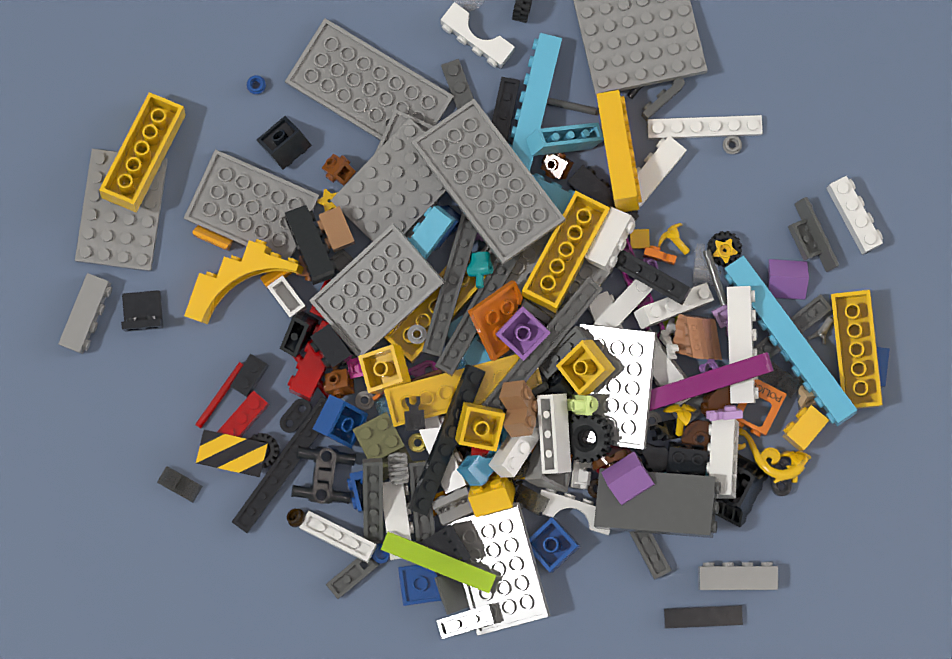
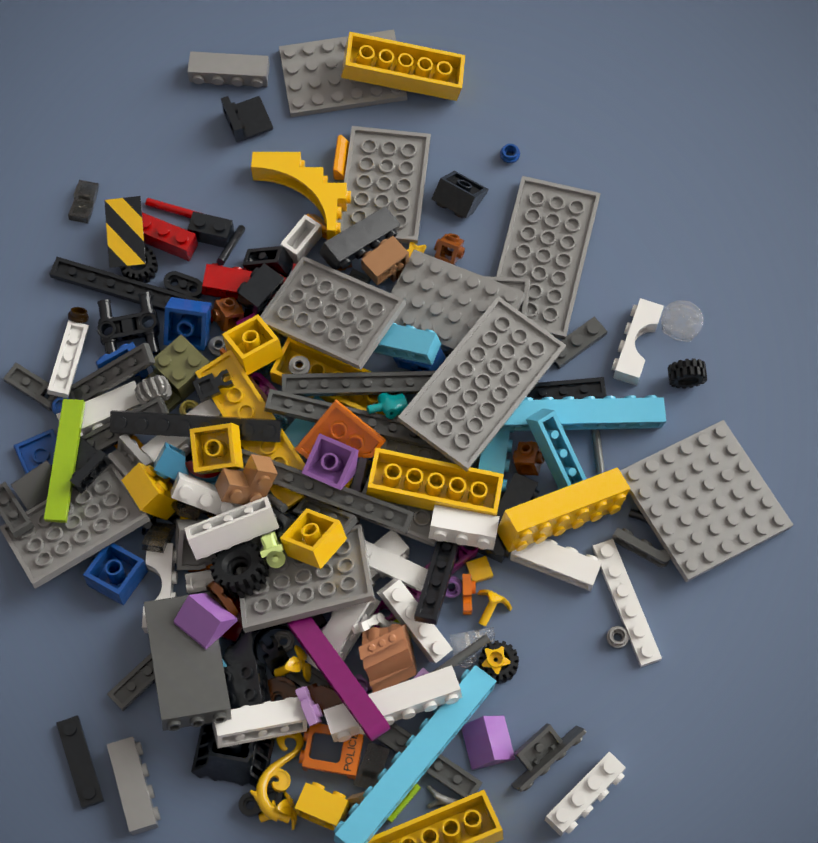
camera: 70 degrees right, 15 degrees down
(273, 362) = (230, 245): none -> black bar

